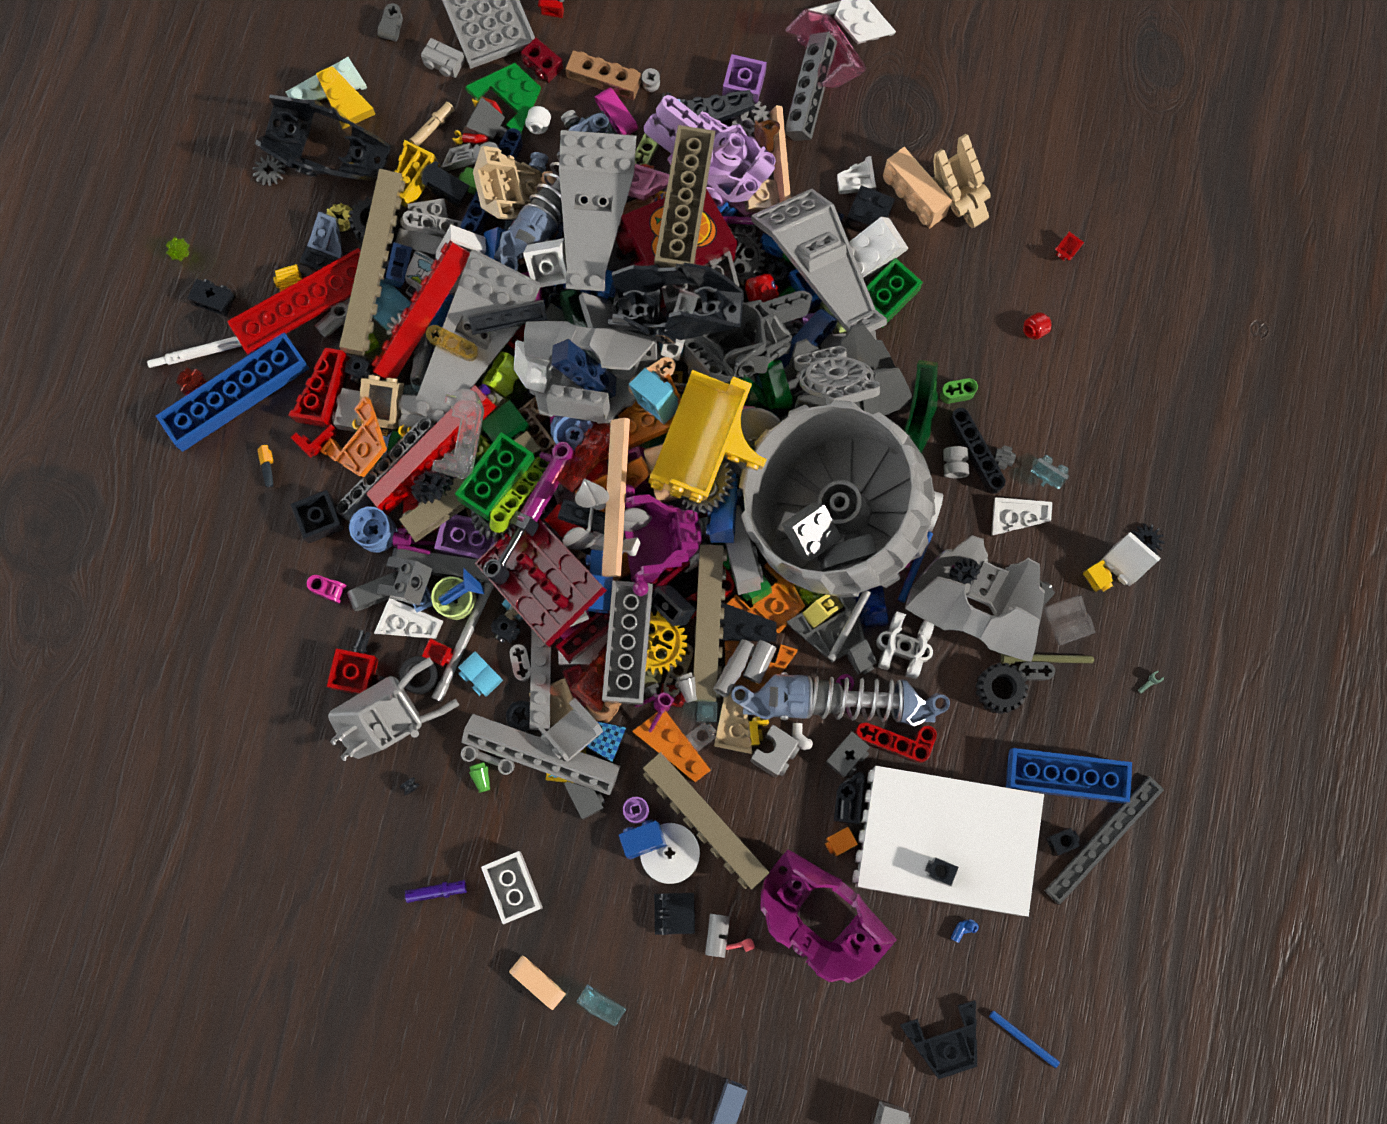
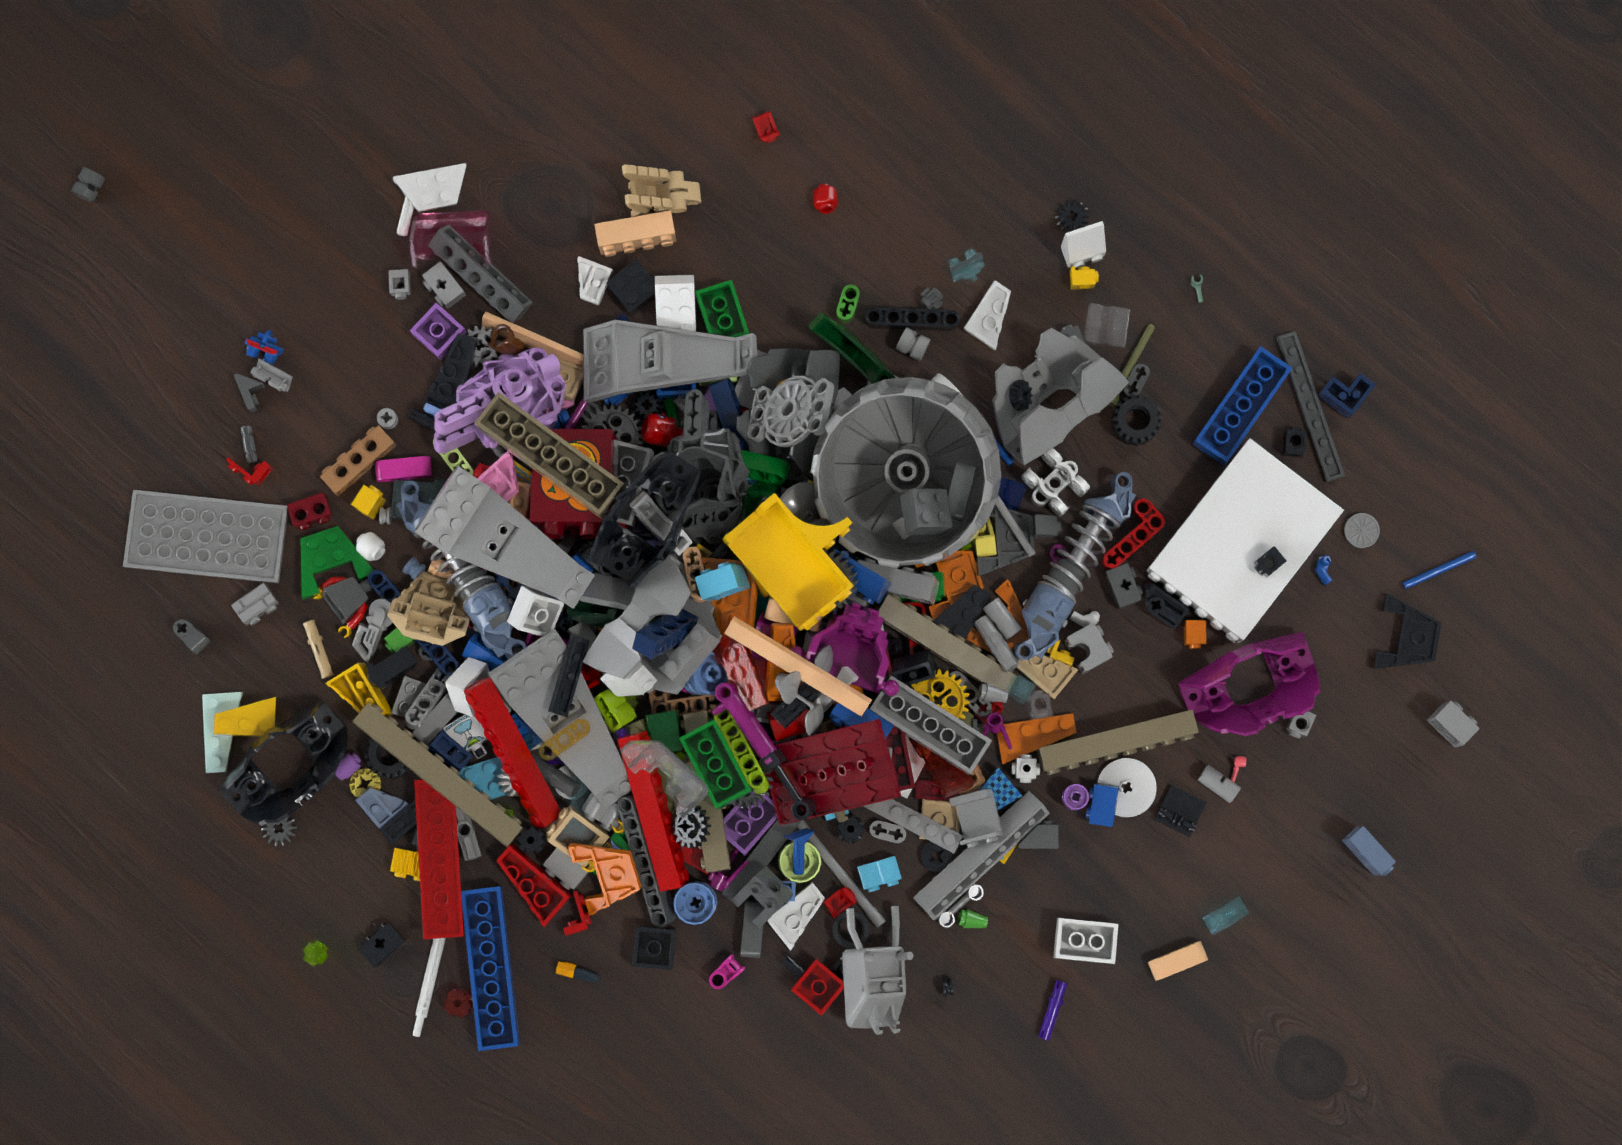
camera: 60 degrees left, 5 degrees up
(346, 194) = (348, 765): none -> medium lavender brick
(573, 96) = (369, 501): none -> yellow brick
(641, 760) = (1017, 768): none -> white brick
(767, 31) = (397, 277): none -> light grey brick
(785, 65) = (451, 294): none -> light grey brick
(821, 986) = (1308, 719): none -> light grey brick
(1019, 946) = (1361, 530): none -> light grey wheel
(1130, 867) = (1346, 399): none -> dark blue brick

